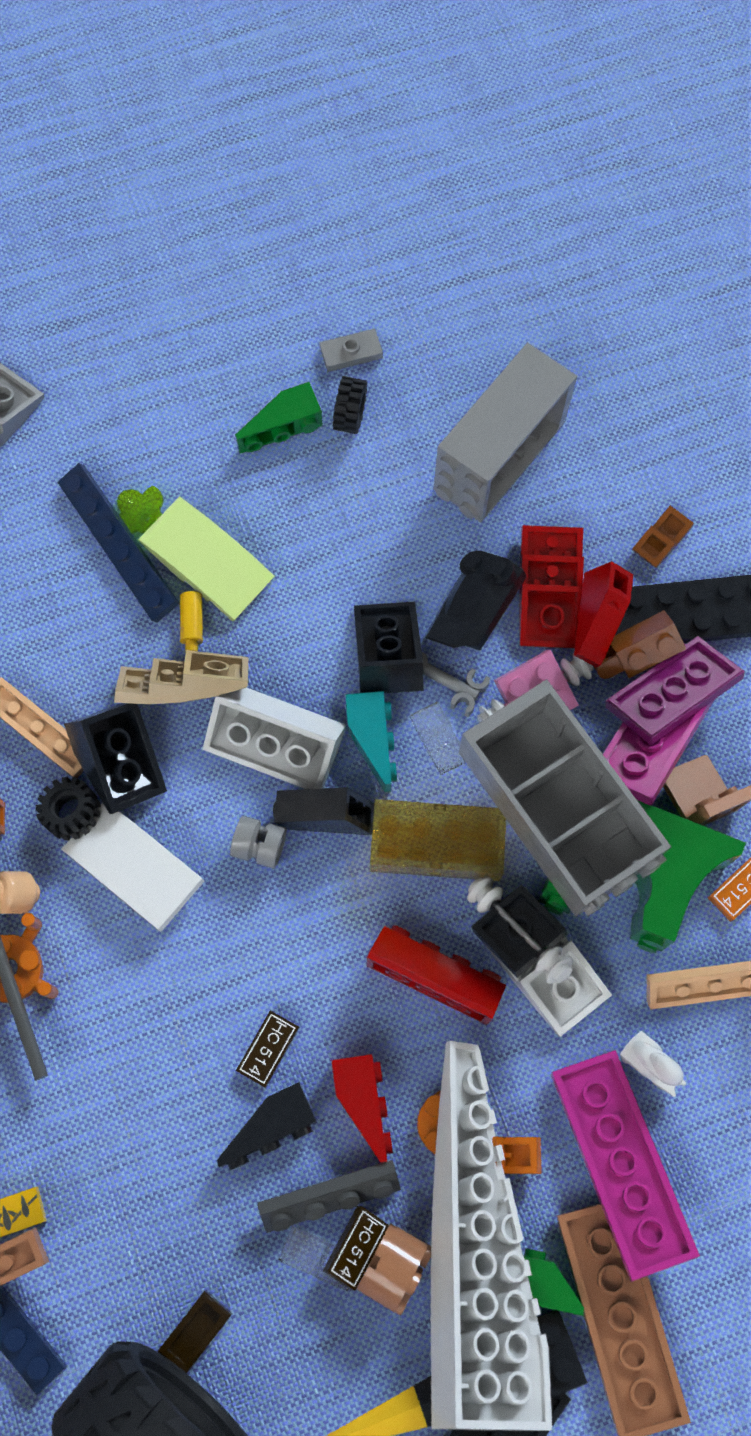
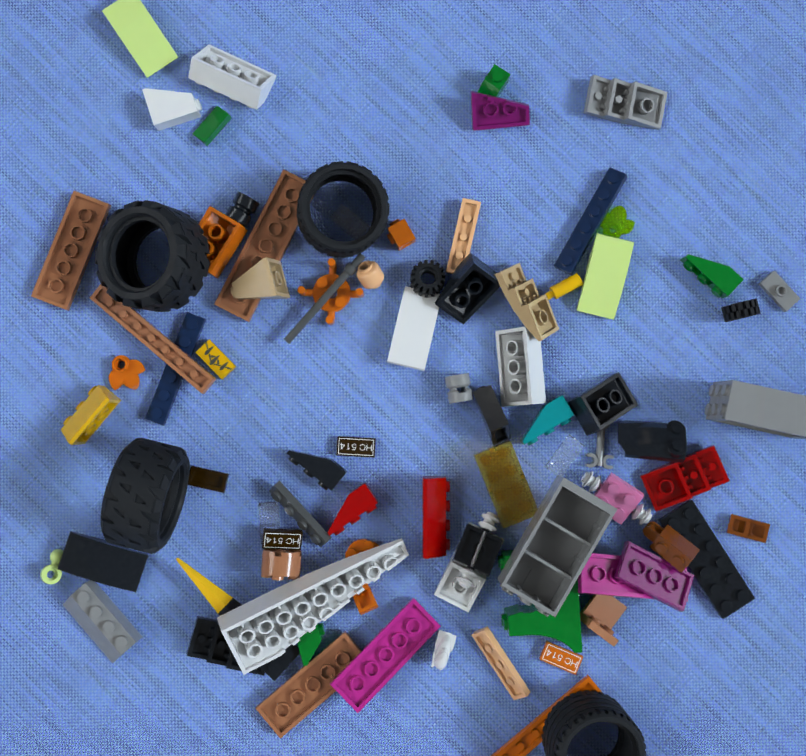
camera: 70 degrees right, 15 degrees up
(602, 608) = (684, 515): red slope -> none

